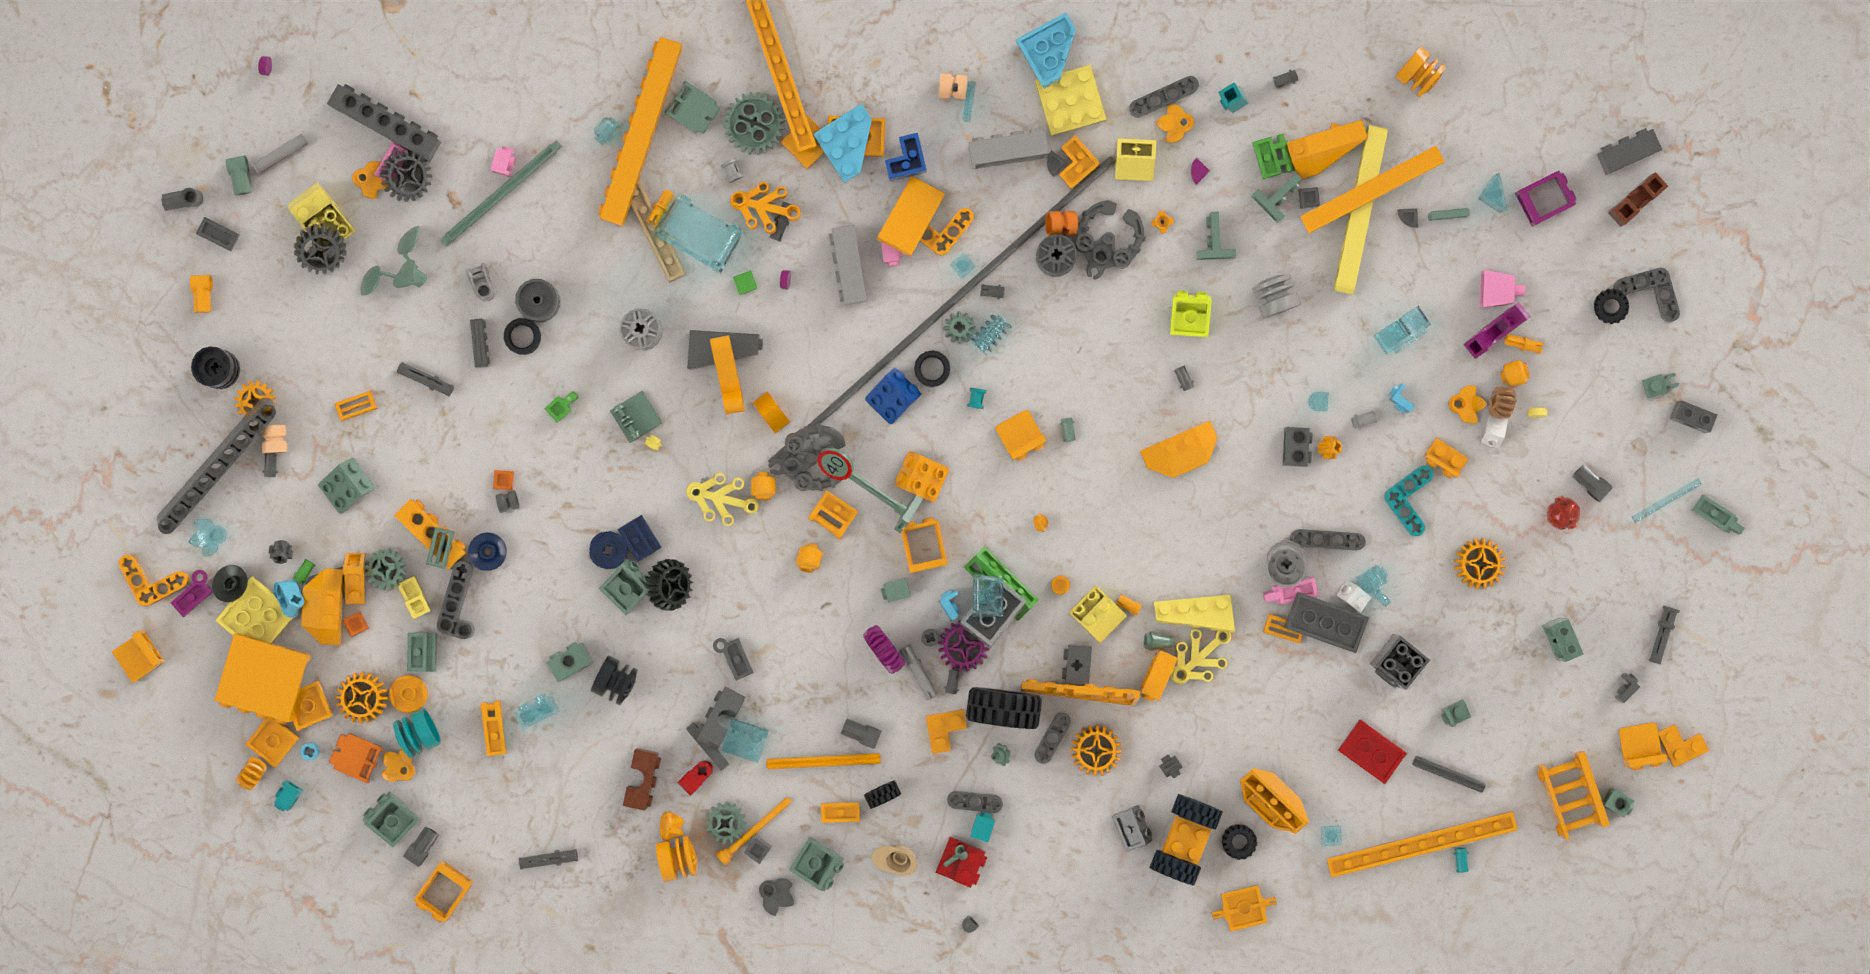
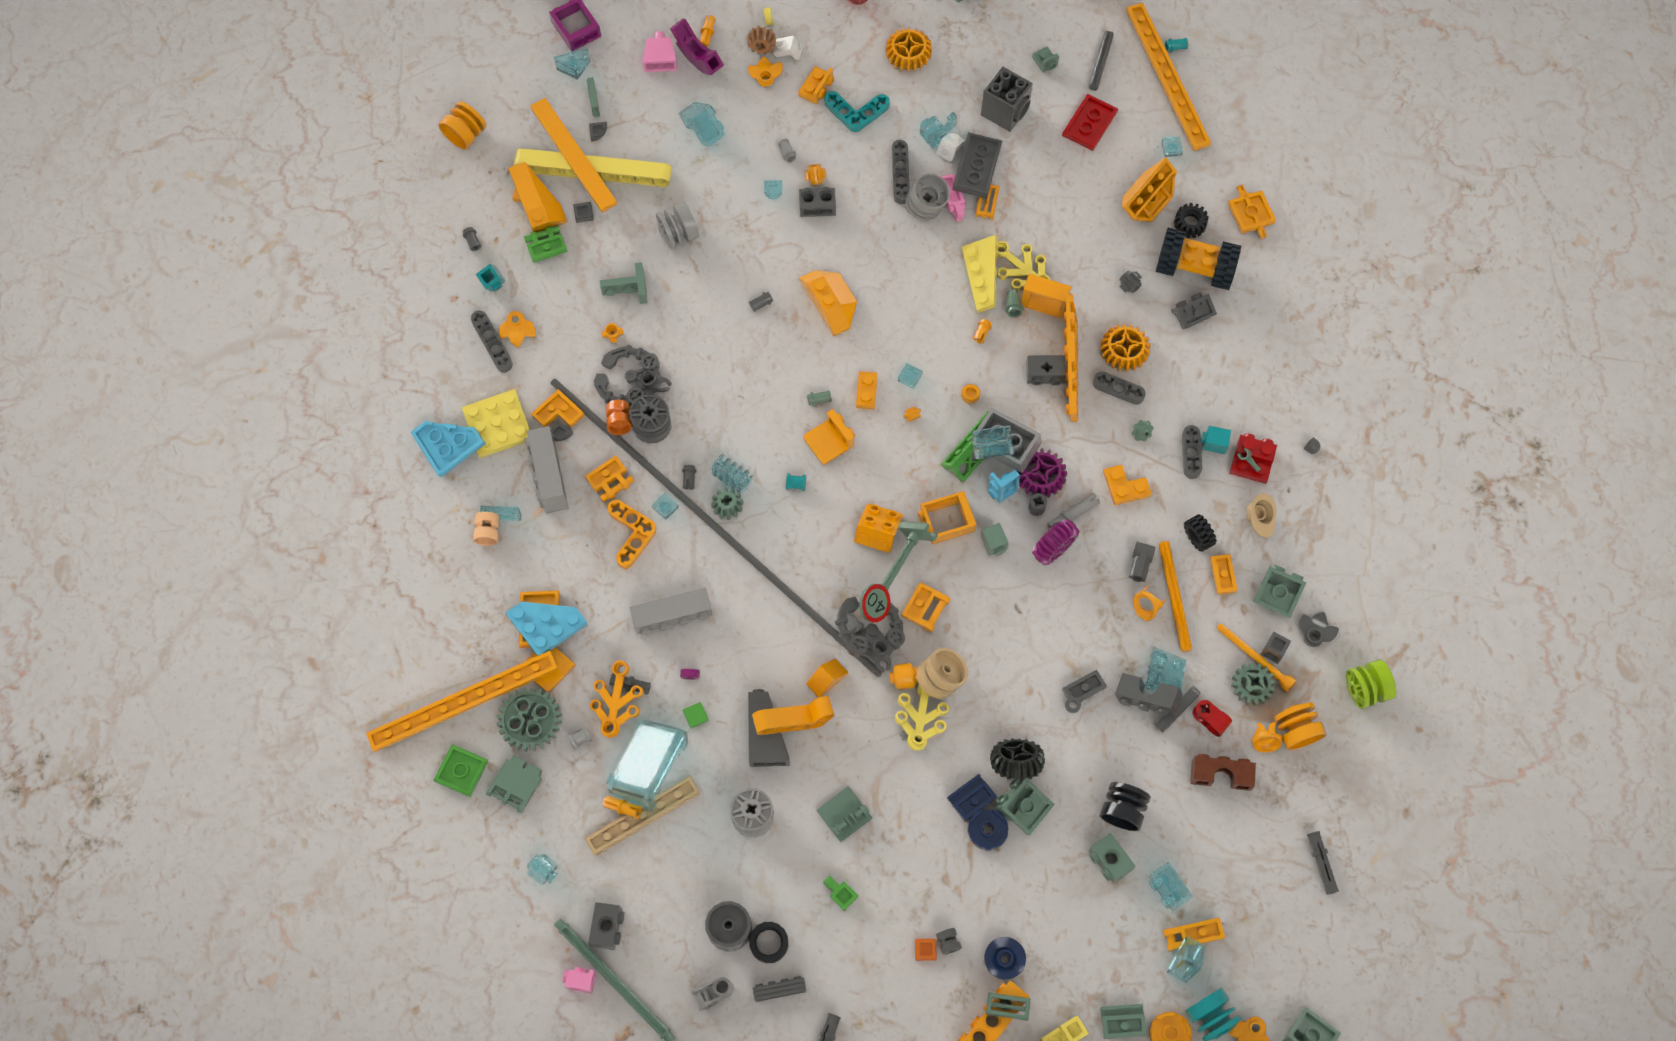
camera: 95 degrees left, 20 degrees down
(419, 849) = (1340, 1004): dark grey piece -> none
(450, 595) = (1059, 984): dark grey beam -> none
(456, 877) = (1359, 960): light orange window -> none
(469, 718) = (1187, 960): none -> clear light blue slope
(541, 180) = (602, 914): none -> dark grey brick
(641, 131) = (542, 833): light orange brick -> none
(653, 442) = (870, 793): light yellow plate -> none
(710, 57) = (461, 770): none -> bright green plate
(711, 934) = (1371, 684): none -> lime wheel
(759, 522) = (942, 673): none -> tan wheel
(805, 730) = (1145, 614): none -> light orange piece
(809, 558) = (972, 625): light orange head -> none
(890, 255) = (654, 573): bright pink brick -> none
(893, 395) = (801, 560): blue bracket -> none
(911, 162) = (562, 560): blue brick -> none
(911, 216) = (618, 554): light orange tile -> none
(929, 354) = (773, 512): black tyre -> none
(952, 682) = (1078, 481): dark grey pin -> none
(1003, 209) = (606, 474): none -> light orange plate
(1003, 708) = (1099, 421): black tyre -> none
(1073, 479) = (866, 390): none -> light orange plate
(1085, 525) = (910, 376): none -> clear light blue plate
(1098, 614) = (994, 356): light yellow slope -> none
(1135, 159) = (552, 357): light yellow slope -> none
(1190, 314) = (699, 299): neon yellow plate -> none
(1198, 171) = (562, 305): magenta tile -> none
(1278, 198) = (589, 240): sand green bracket -> none
(1401, 404) = (769, 120): medium azure bracket -> none
(1515, 373) = (734, 35): light orange head -> none

